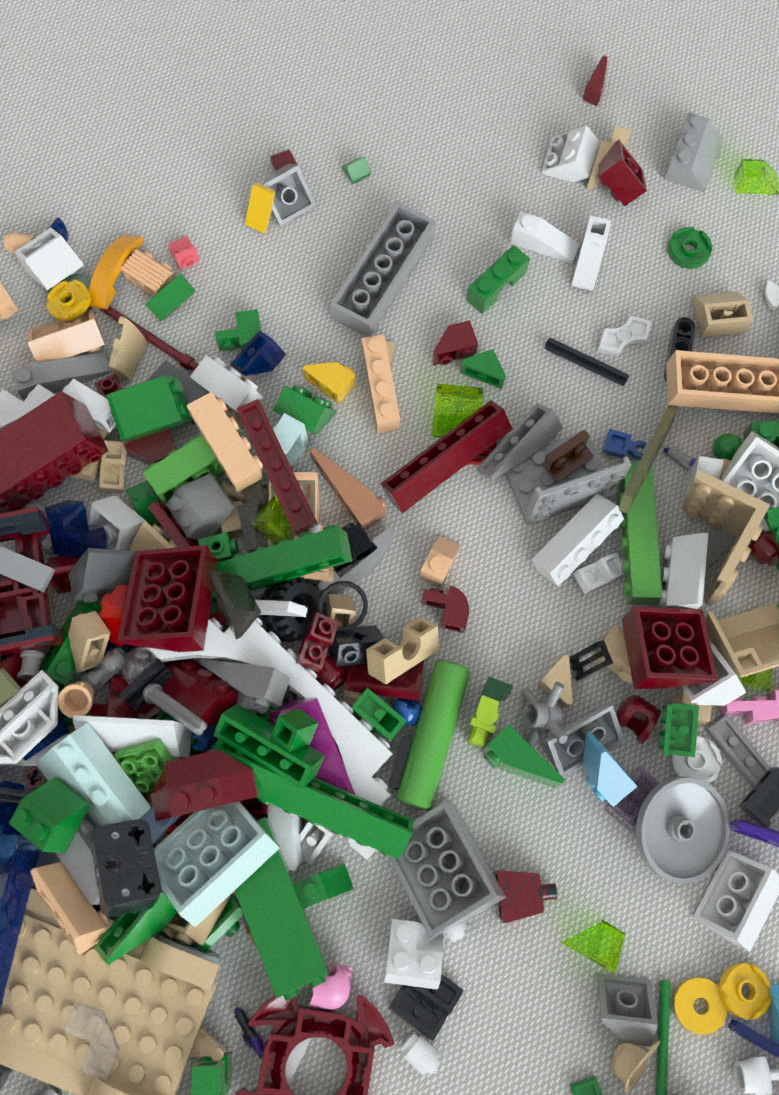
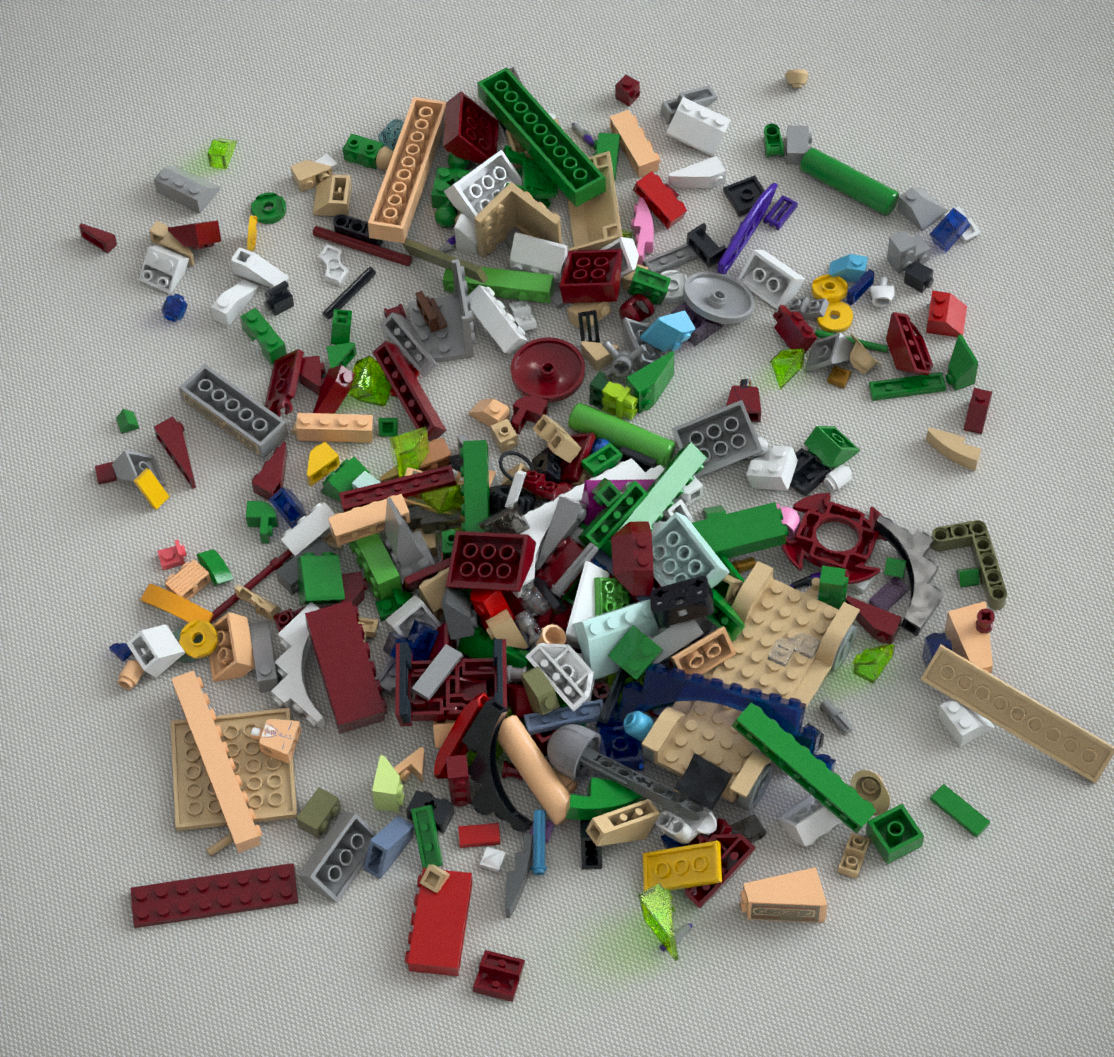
camera: 75 degrees left, 15 degrees down
(202, 483) = (400, 537): none -> light grey slope
(305, 332) = (272, 474): none -> dark red slope
(329, 222) = (172, 439): none -> dark red slope
(340, 470) = (409, 450): none -> clear neon green slope
(398, 445) = (388, 426): none -> green slope
(407, 585) = (504, 435): none -> tan brick
(427, 370) = (334, 390): none -> dark red slope
(431, 314) = (284, 382): none -> dark red tile
(472, 1036) = (830, 446): none -> green slope
(516, 619) = (548, 369): none -> dark red dish
(517, 178) = (174, 307): none -> clear blue head
(530, 360) = (341, 326): none -> green slope
(555, 284) = (278, 298): none -> black brick
(566, 418) = (399, 310): none -> dark red bush
(595, 1030) = (839, 377): none -> pearl gold tile
(620, 444) = (425, 282): blue plate -> none
(639, 232) = (252, 233): none -> yellow tile
(656, 948) = (793, 329): none -> dark red brick
(659, 364) = (362, 246): none -> dark red axle
(702, 963) = (809, 308): none -> light grey slope
(748, 279) = (309, 174): none -> tan slope

